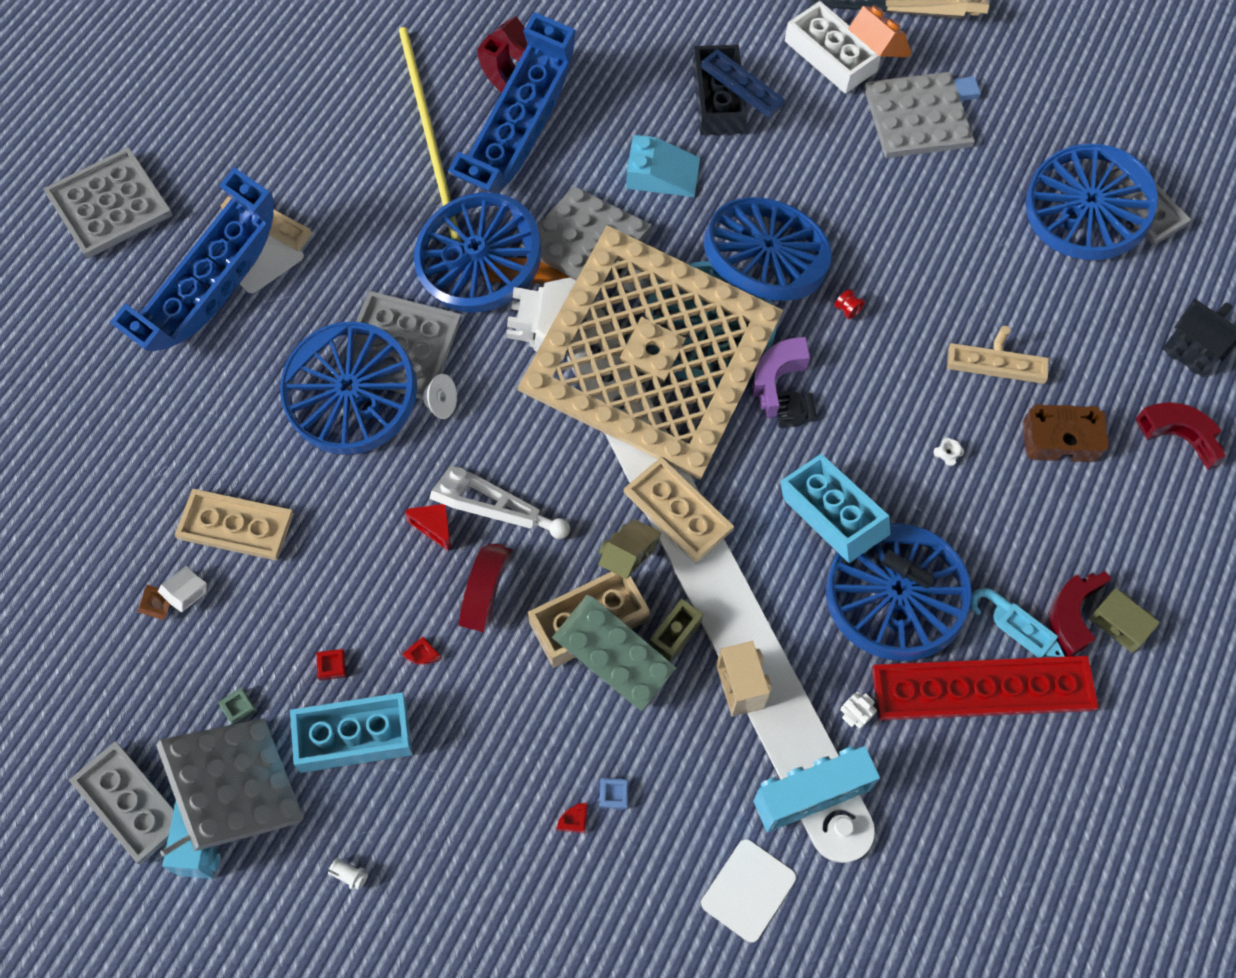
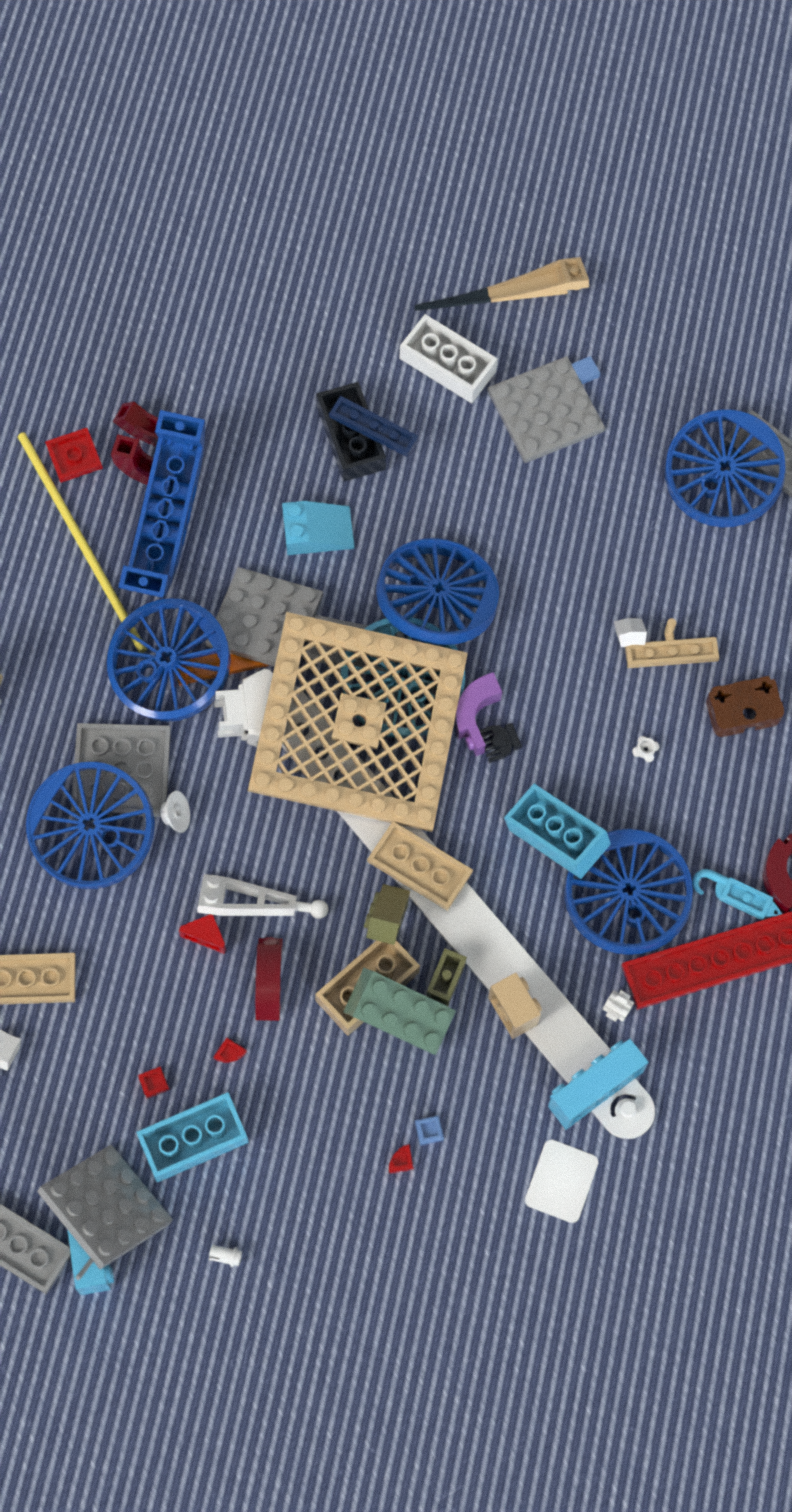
camera: 15 degrees left, 5 degrees up
(237, 706) = (83, 1140): sand green tile -> none
(446, 55) = (73, 455): none -> red plate
(849, 304) = (525, 626): red wheel -> none
(880, 33) = (490, 340): slope -> none
(908, 569) = (633, 872): black axle -> none
(958, 332) = (630, 631): none -> white piece

